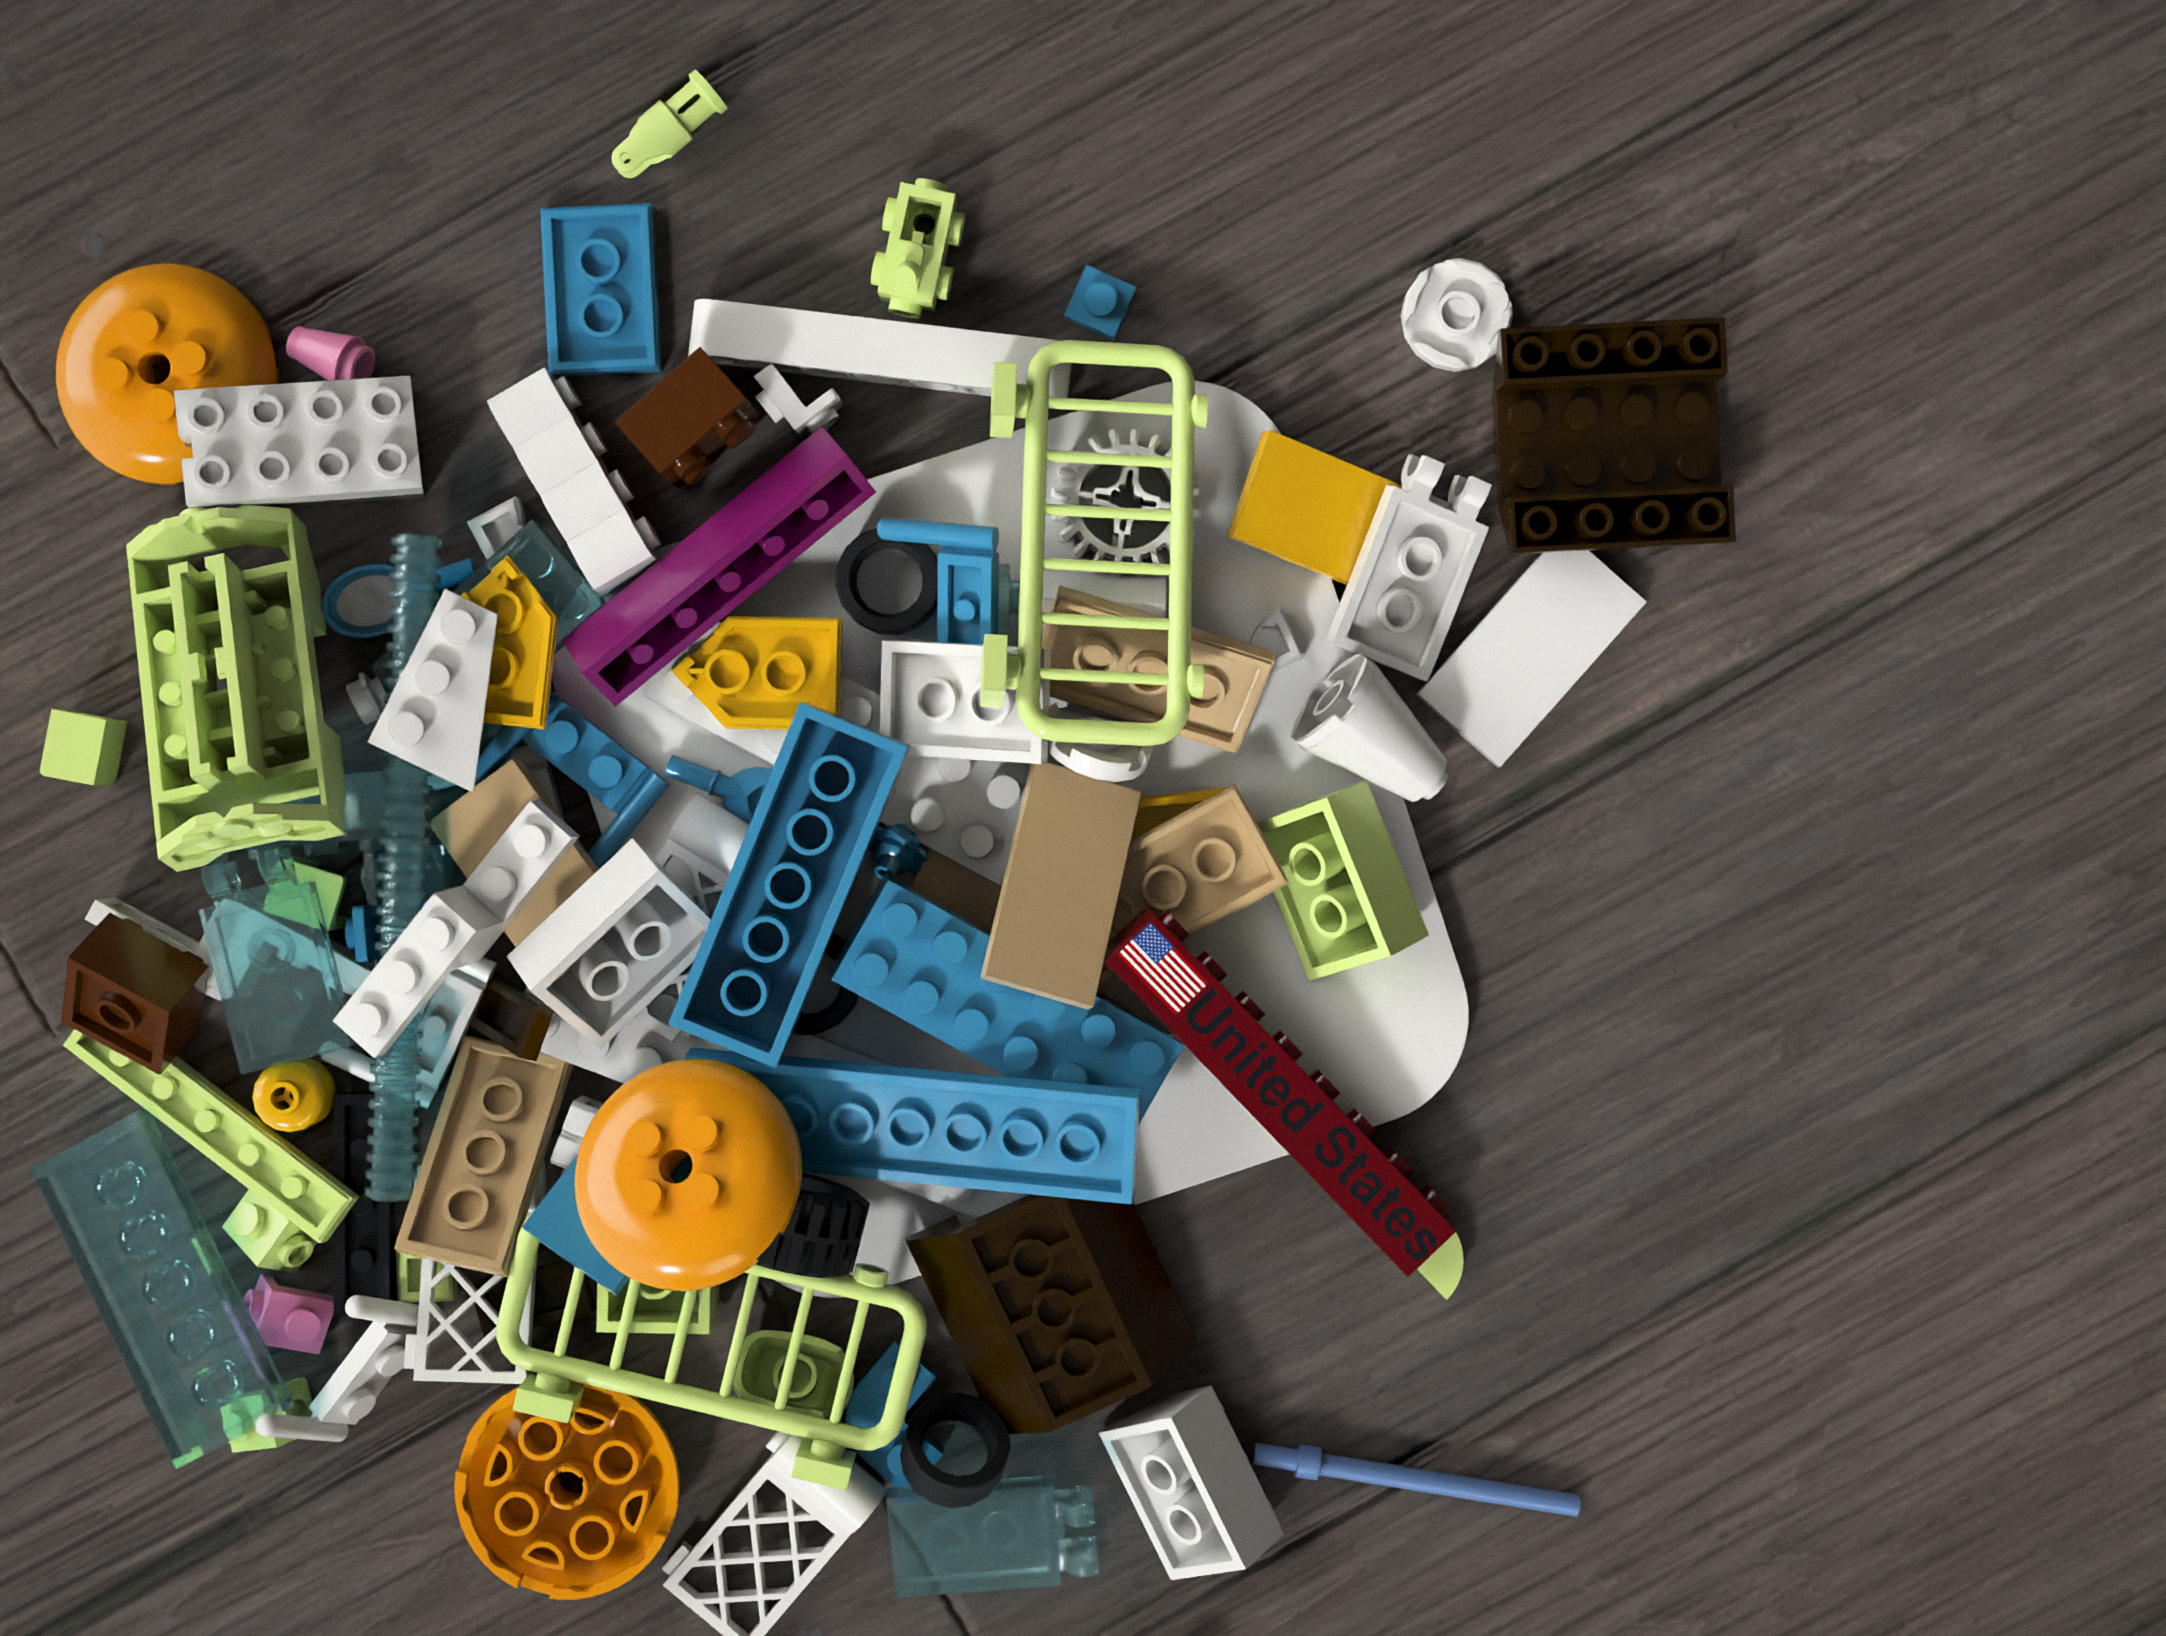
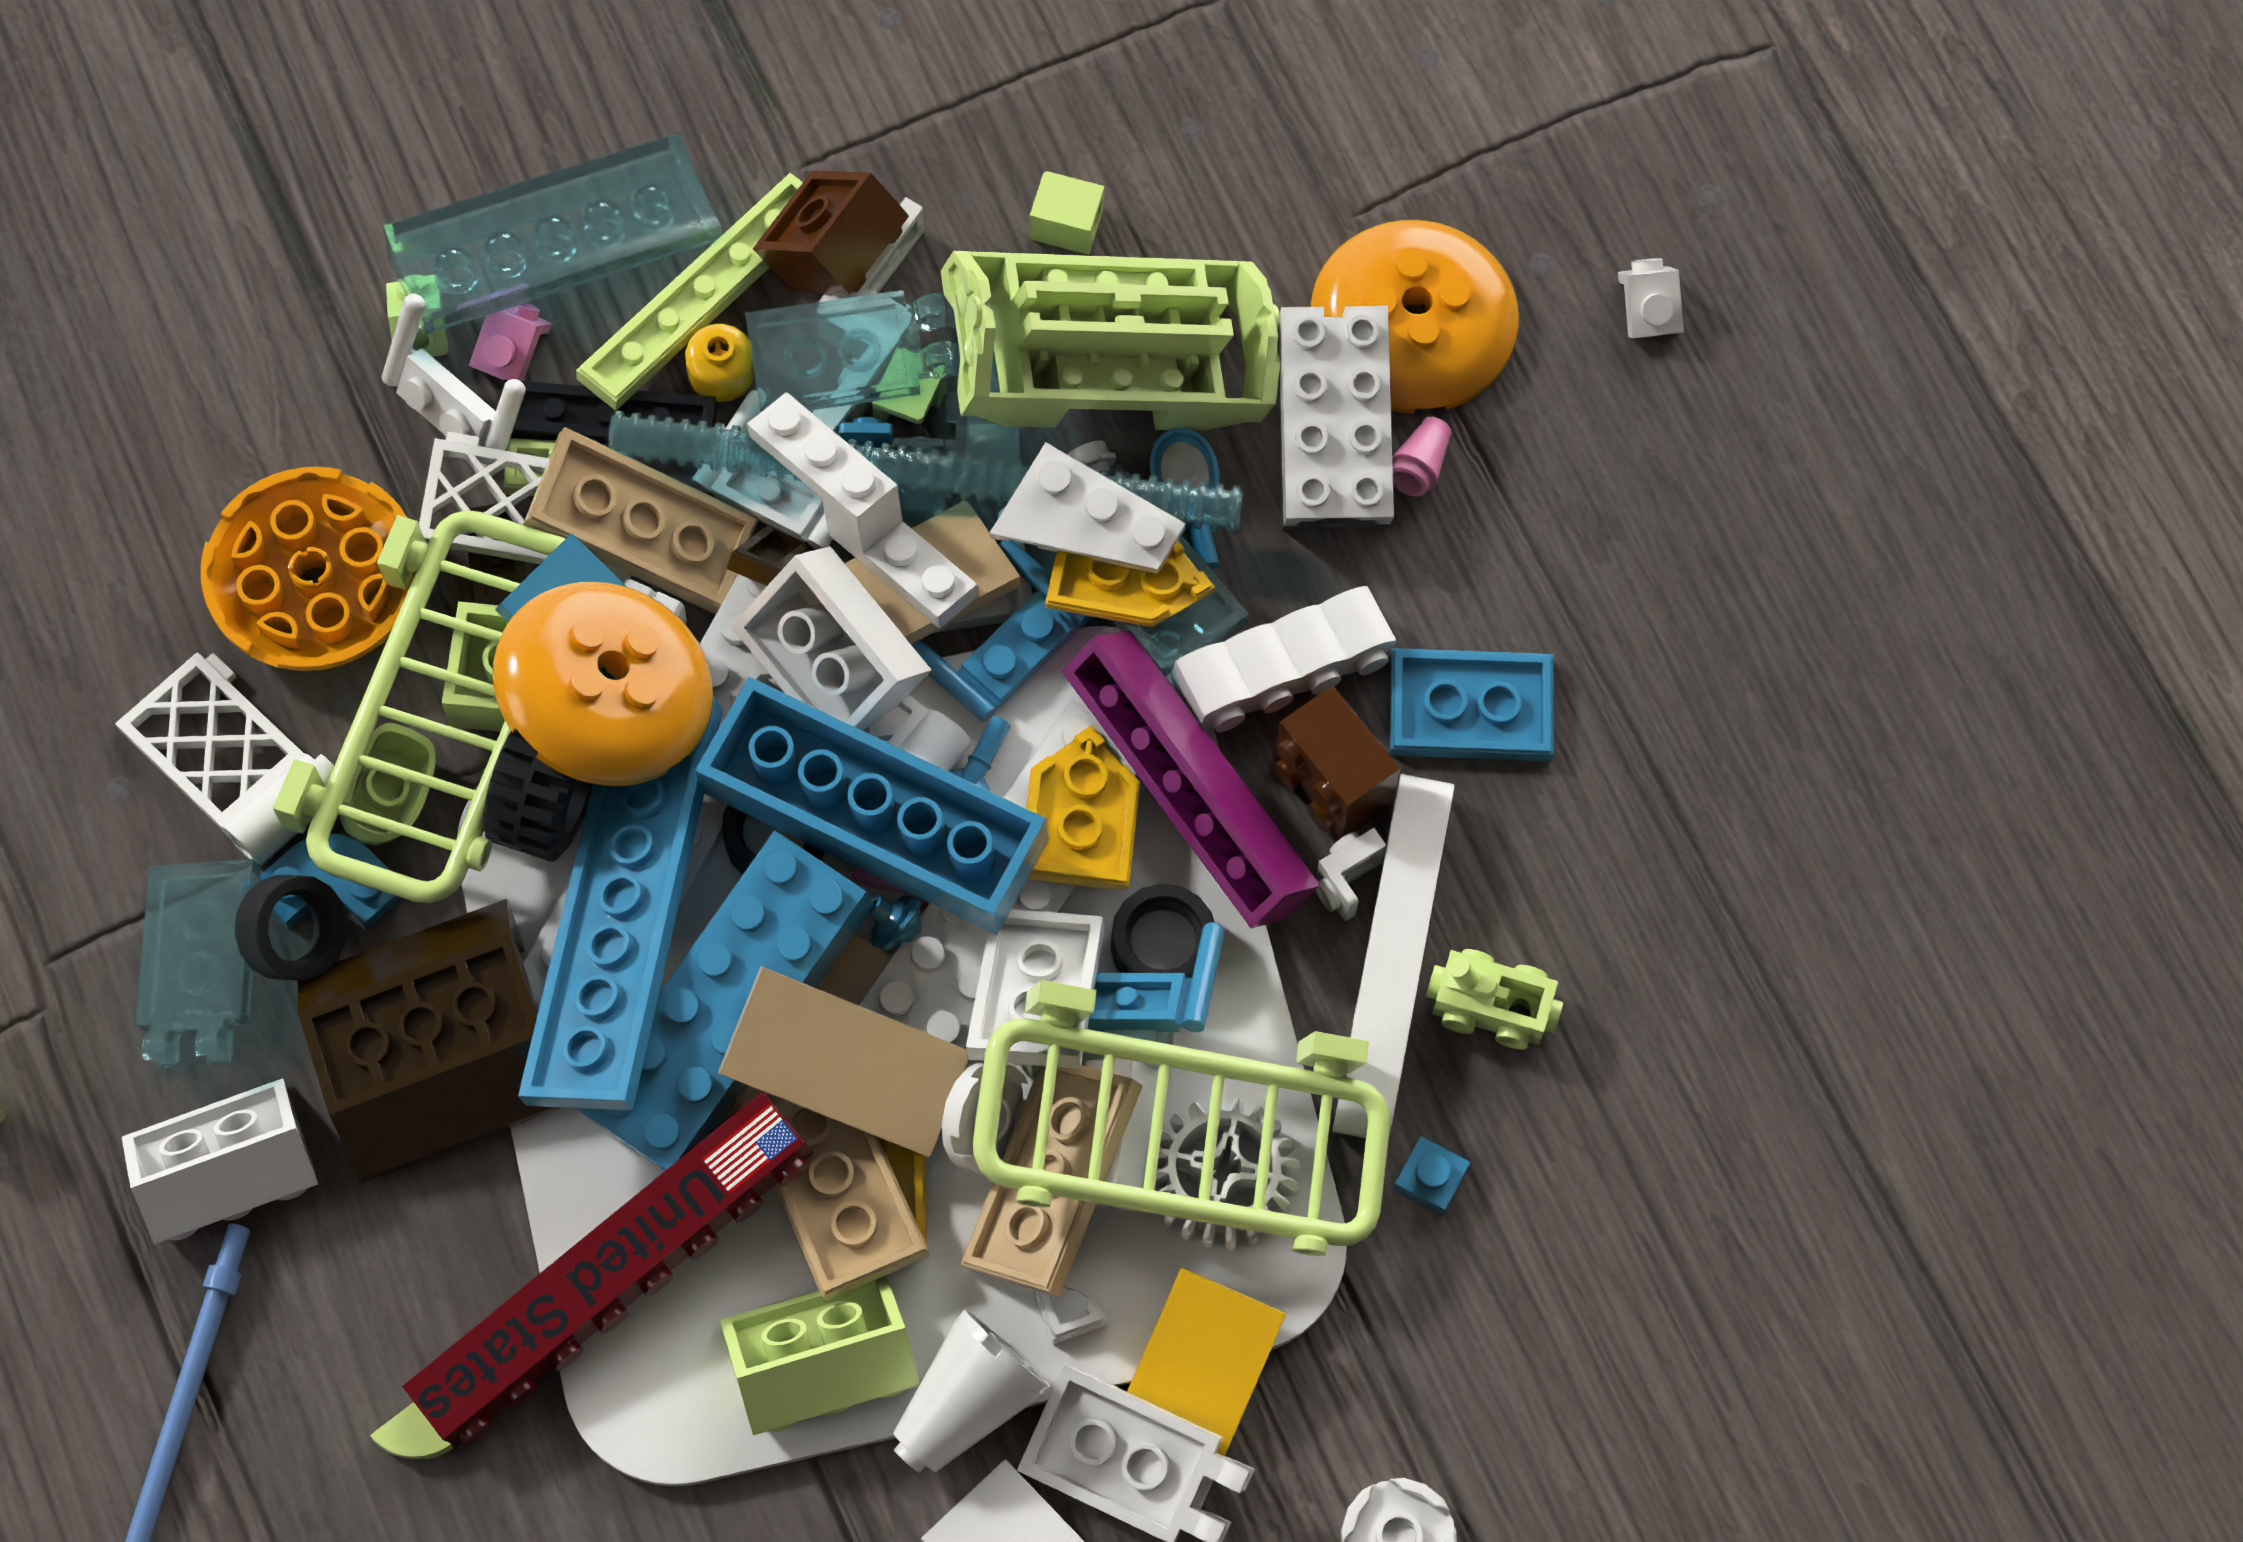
camera: 90 degrees right, 20 degrees down
(125, 121) = (1652, 298): none -> white bracket
(268, 1235) = (586, 330): yellowish green bracket -> none
(498, 525) = (1249, 591): white tile -> none
(667, 126) = (1627, 776): yellowish green piece -> none

